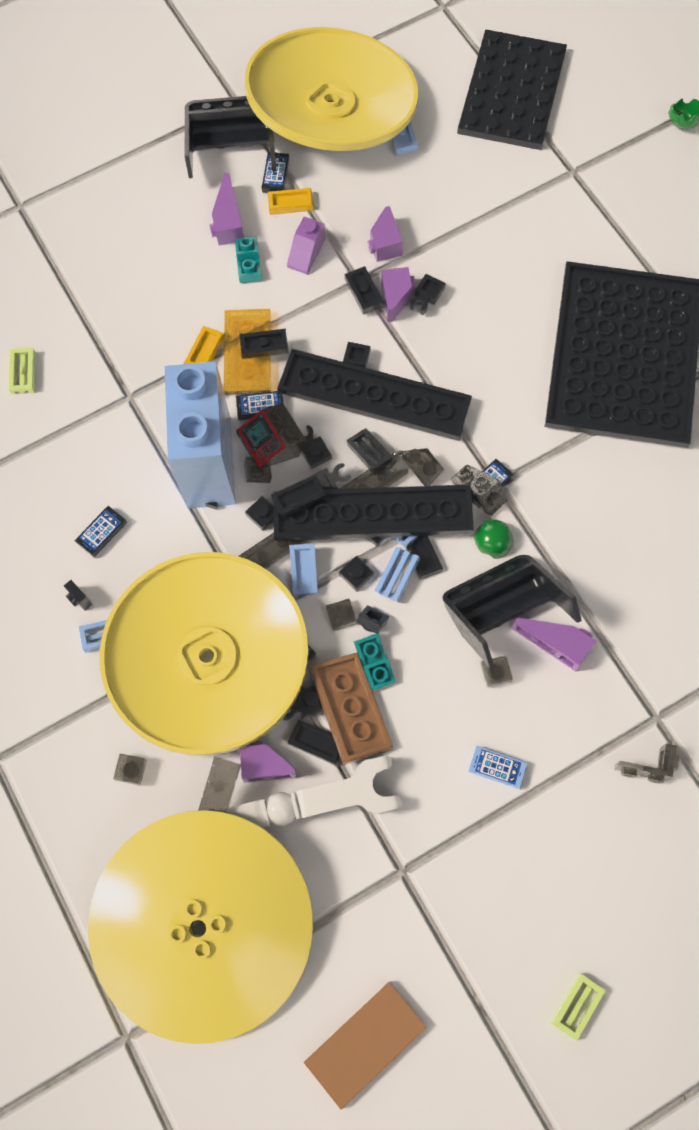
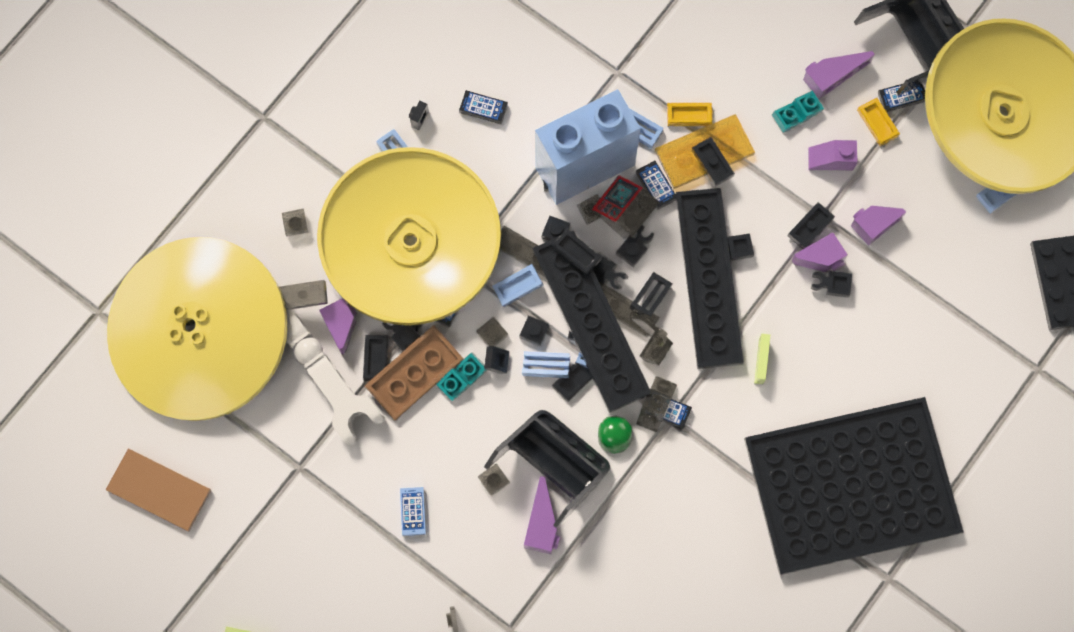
camera: 65 degrees right, 5 degrees up
(474, 379) = (762, 359): none -> yellowish green tile

